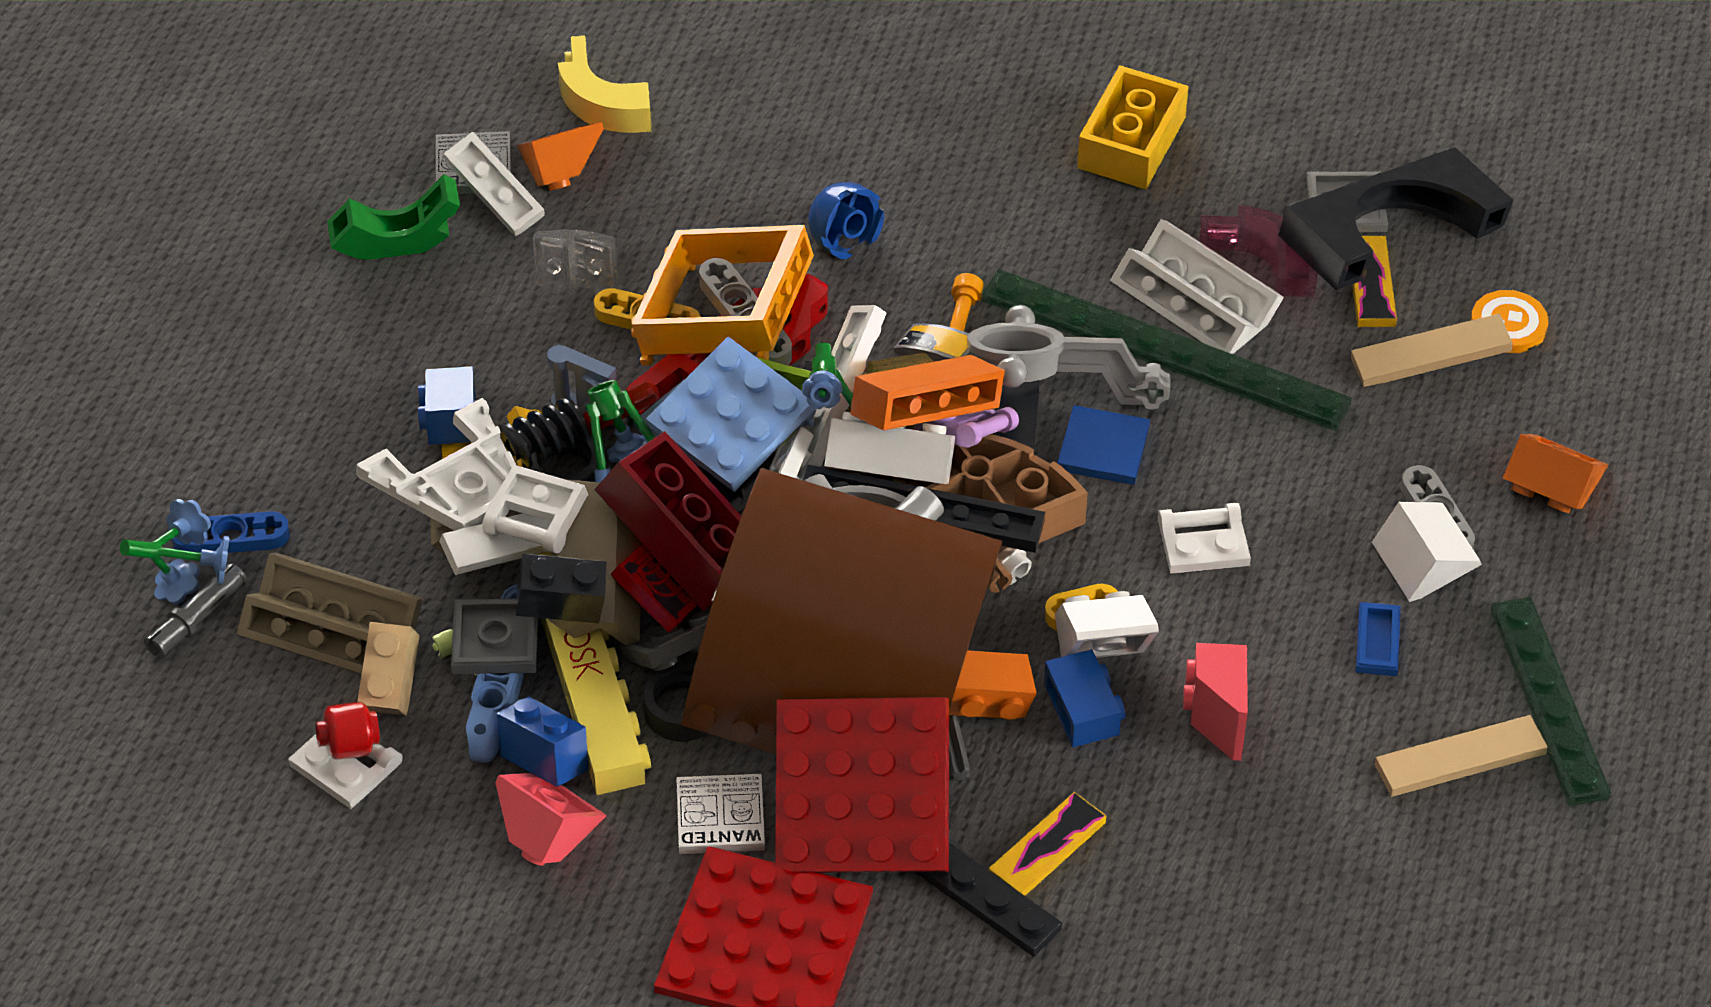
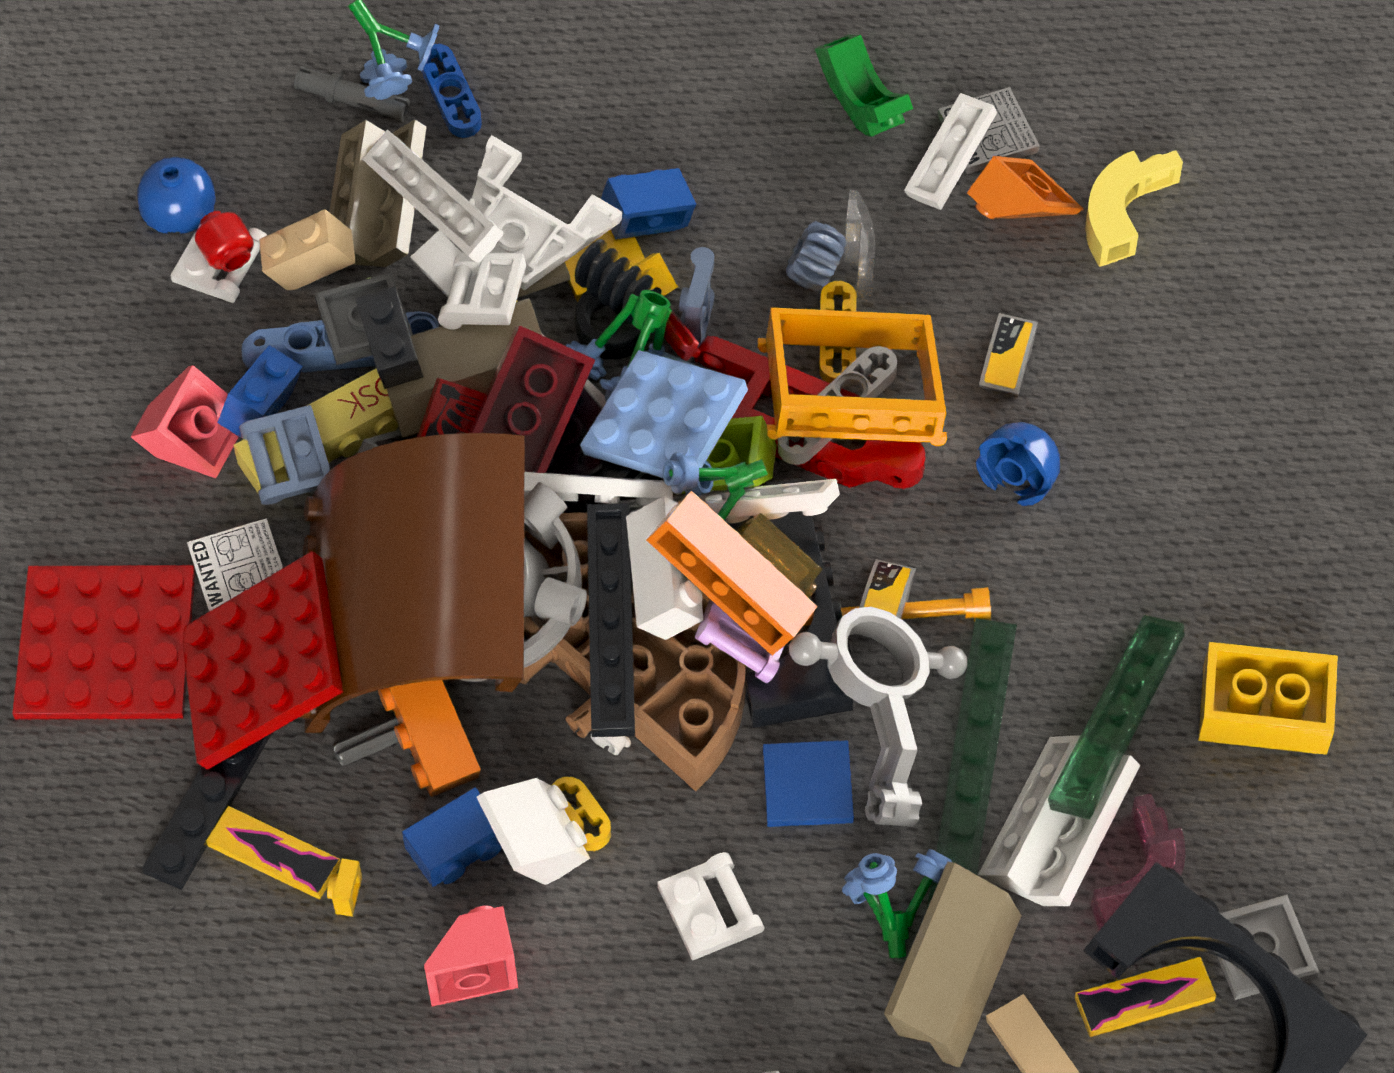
camera: 75 degrees right, 10 degrees up
(252, 779) = (175, 195): none -> blue cylinder
(396, 533) = (433, 197): none -> white plate
(568, 299) = (816, 256): none -> sand blue gear
(632, 713) = (300, 450): none -> sand blue plate
(715, 201) = (1008, 354): none -> slope
(1109, 789) = (345, 886): none -> yellow plate
(1120, 219) = (1116, 717): none -> clear green plate
(1248, 382) = (877, 876): none -> plant
(1318, 378) = (953, 963): none -> dark tan slope

